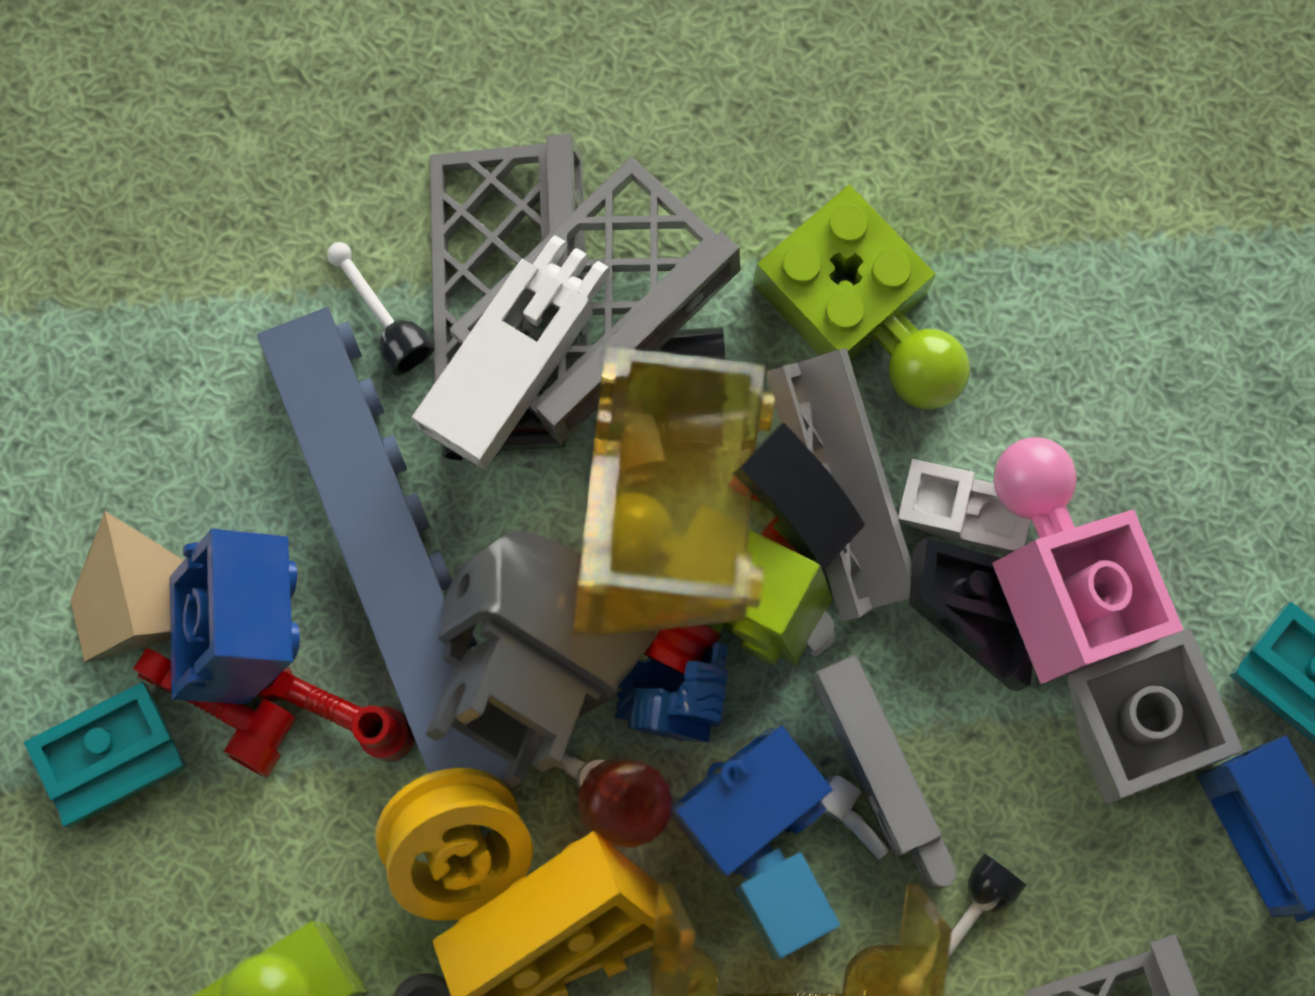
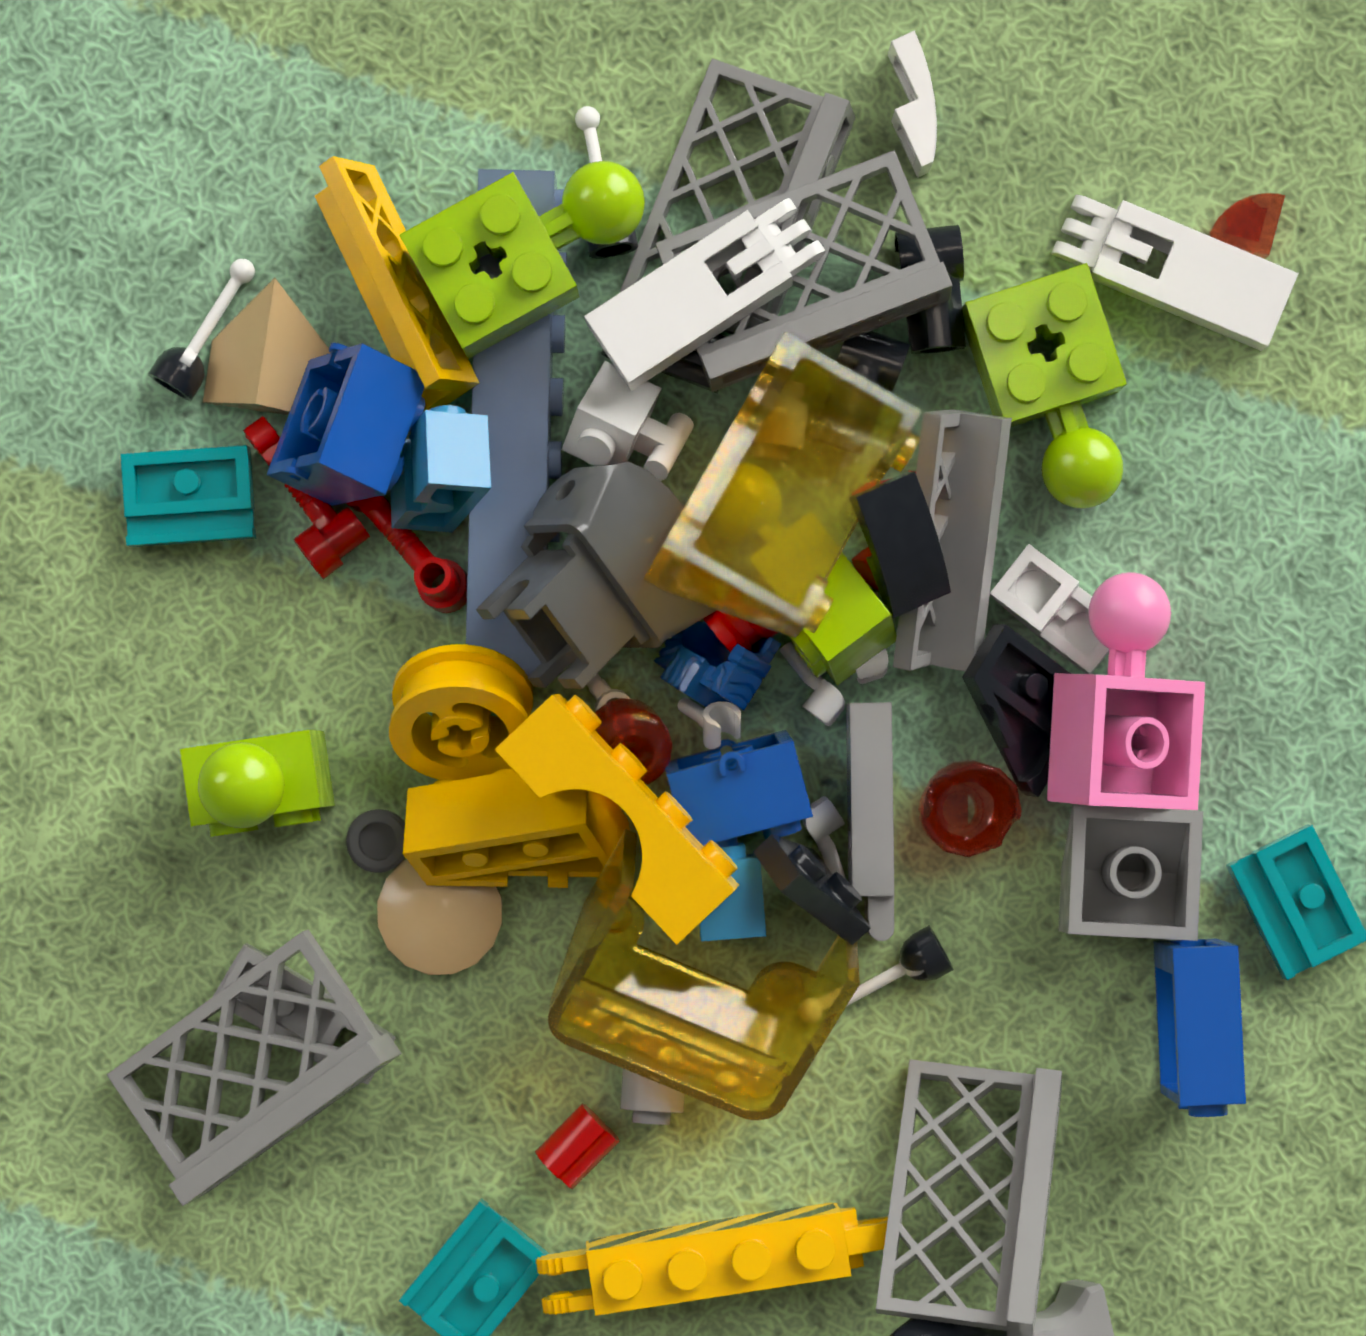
camera: 30 degrees right, 10 degrees up
(52, 638) = (181, 367): none -> hinge
(218, 468) = (390, 282): none -> yellow fence
(300, 367) = (598, 205): none -> lime brick
(339, 621) = (442, 470): none -> dark azure brick
(483, 508) = (617, 421): none -> white brick
(638, 129) = (916, 120): none -> white slope
(697, 746) = (713, 719): none -> white hand
(732, 902) = (678, 875): none -> yellow arch
(742, 299) = (942, 325): none -> black piece
(791, 684) = (826, 700): none -> white hand
(852, 854) = (812, 886): none -> black wing
(955, 162) = (1199, 279): none -> white hinge
(974, 100) = (1250, 223): none -> clear red tile
(991, 709) = (945, 807): none -> clear red hair

